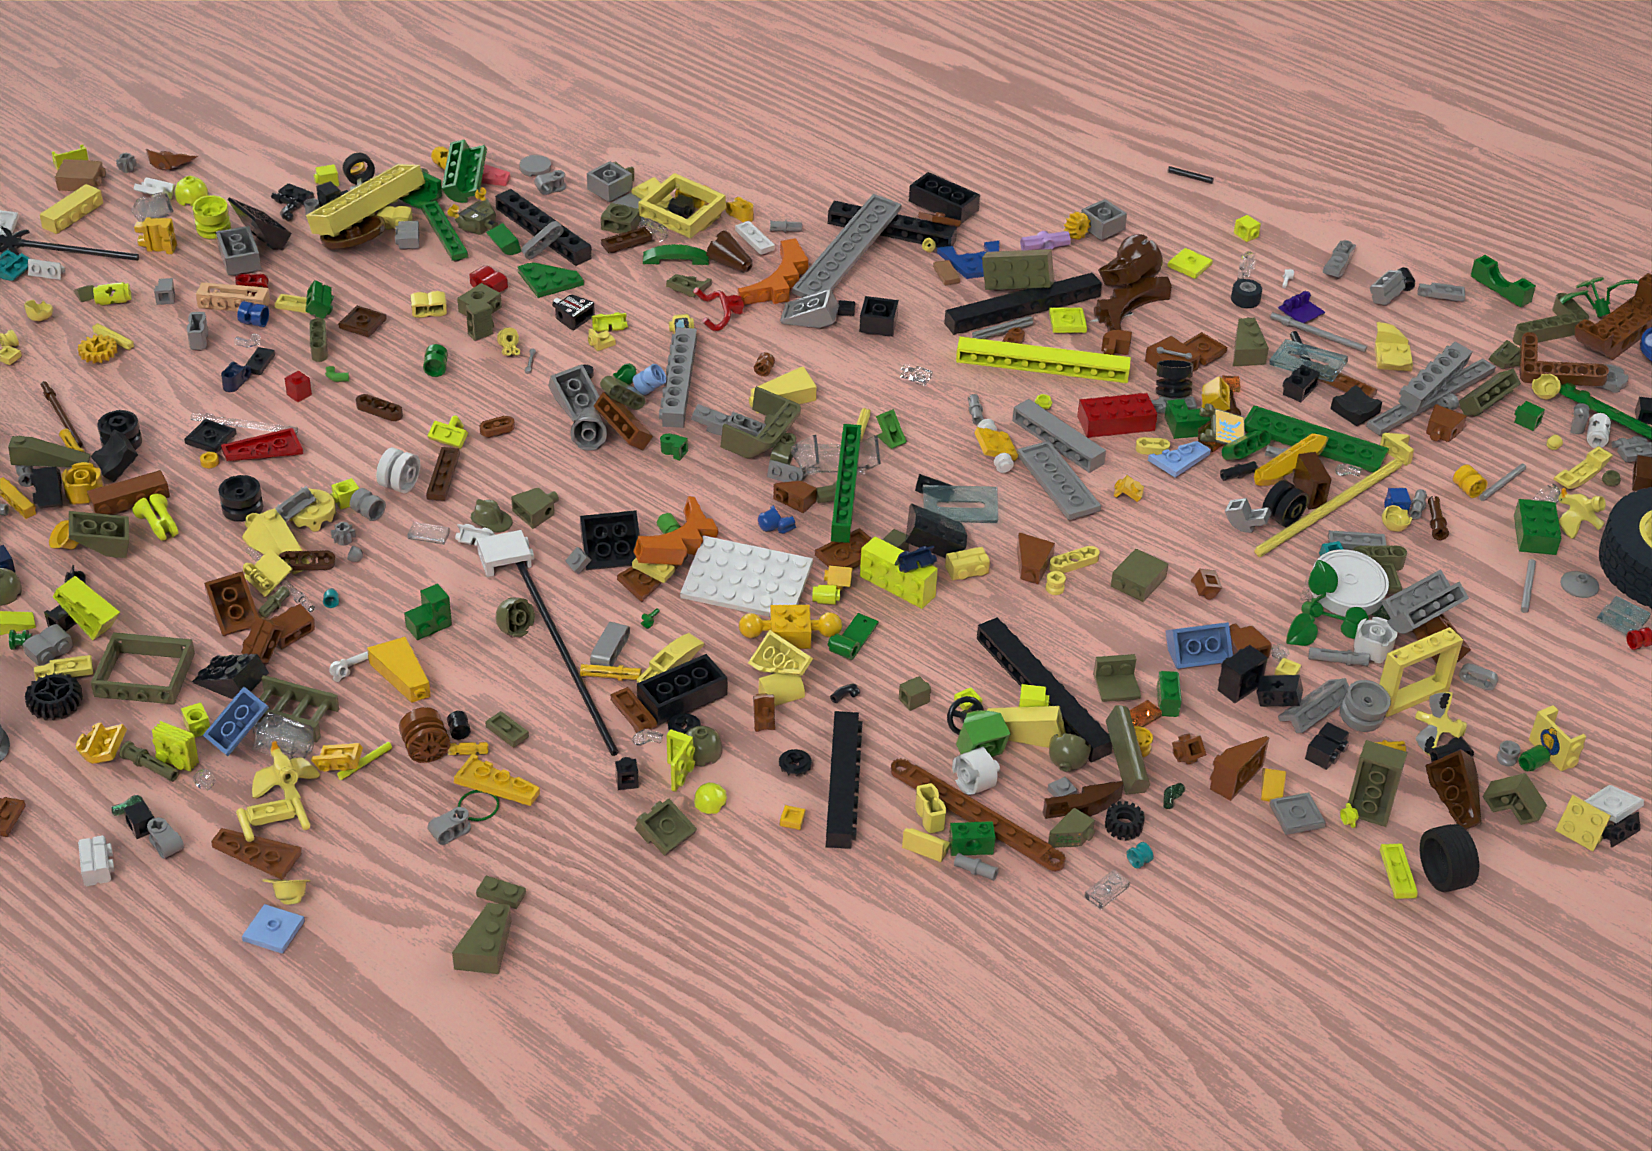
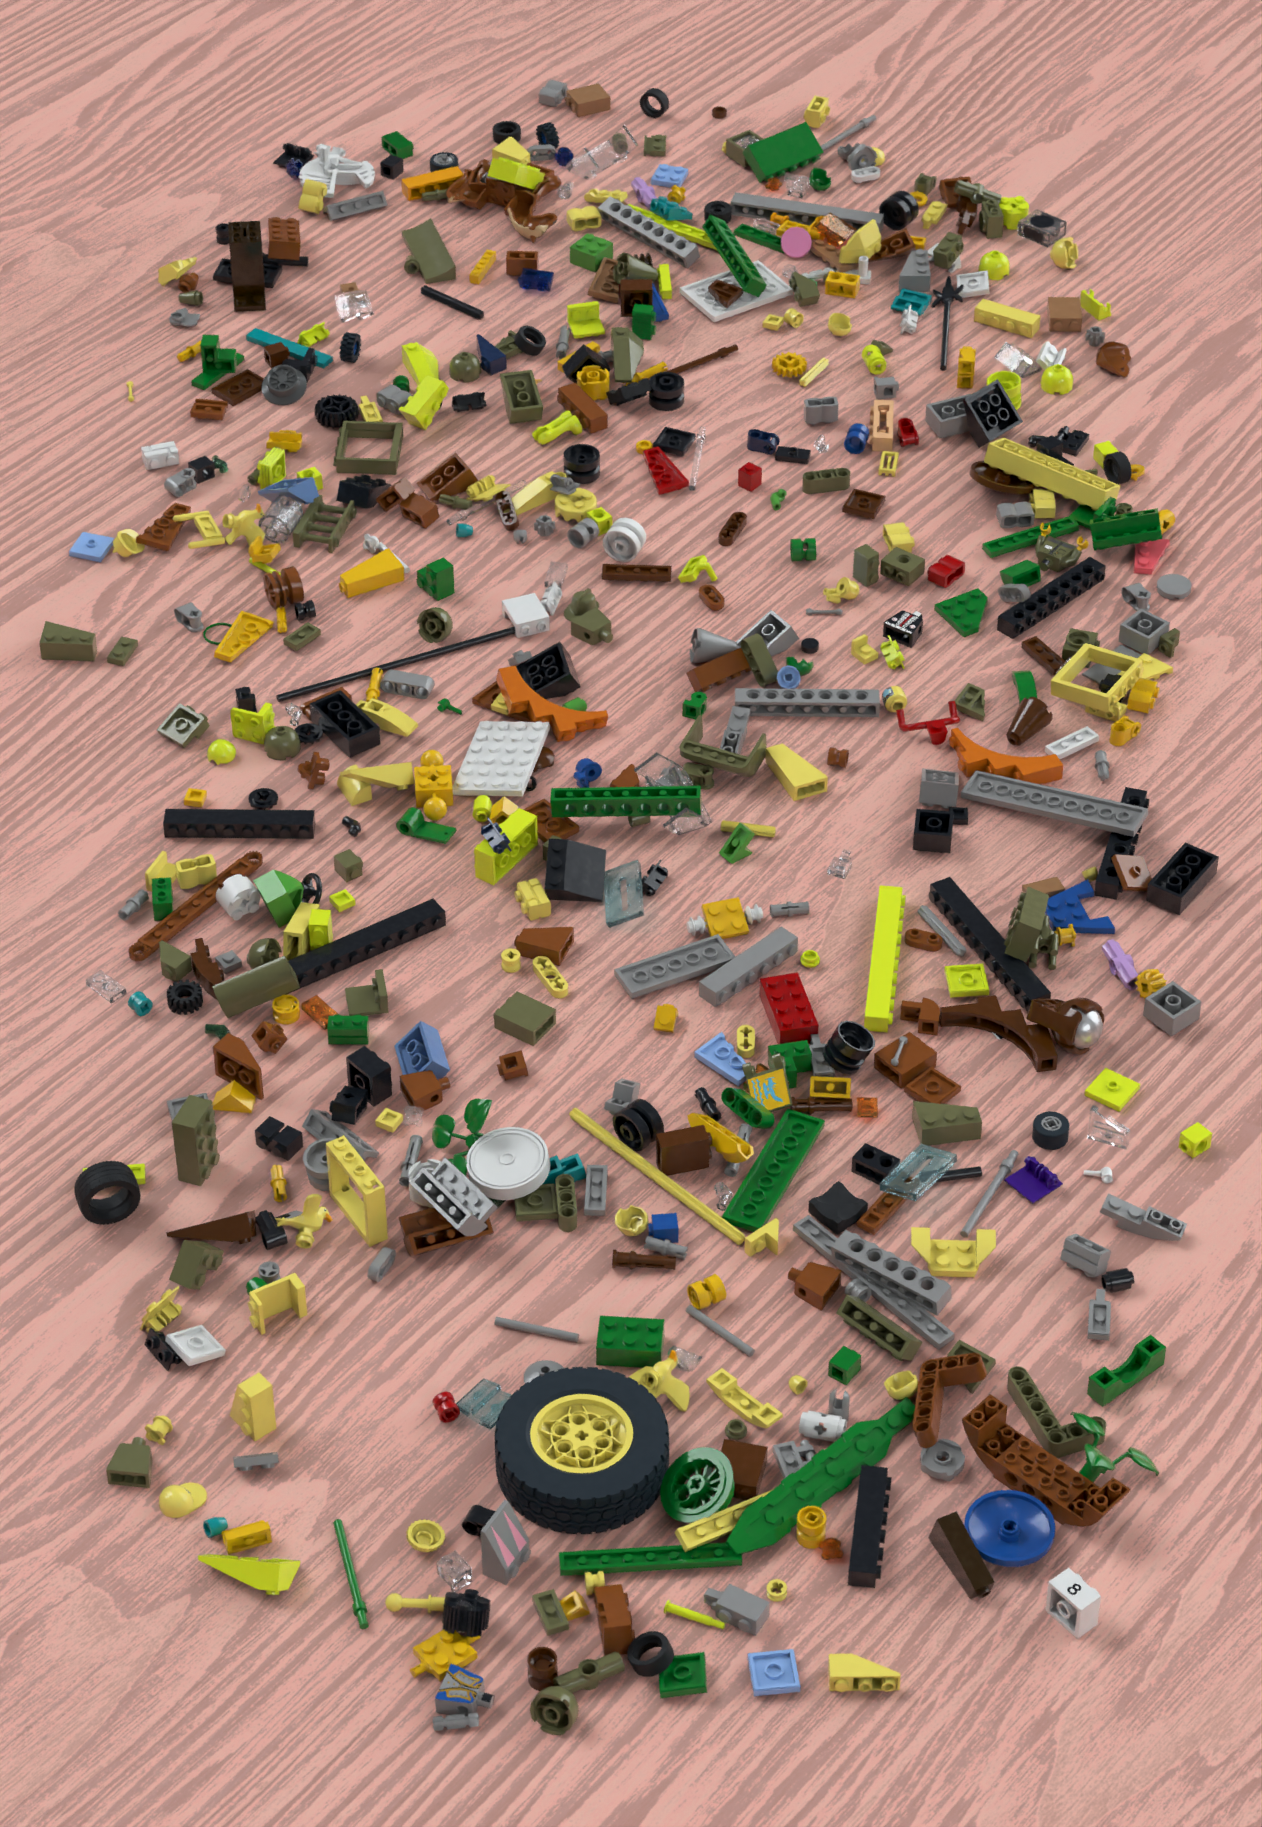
camera: 90 degrees right, 0 degrees up
(319, 299) = (886, 472): green brick -> none

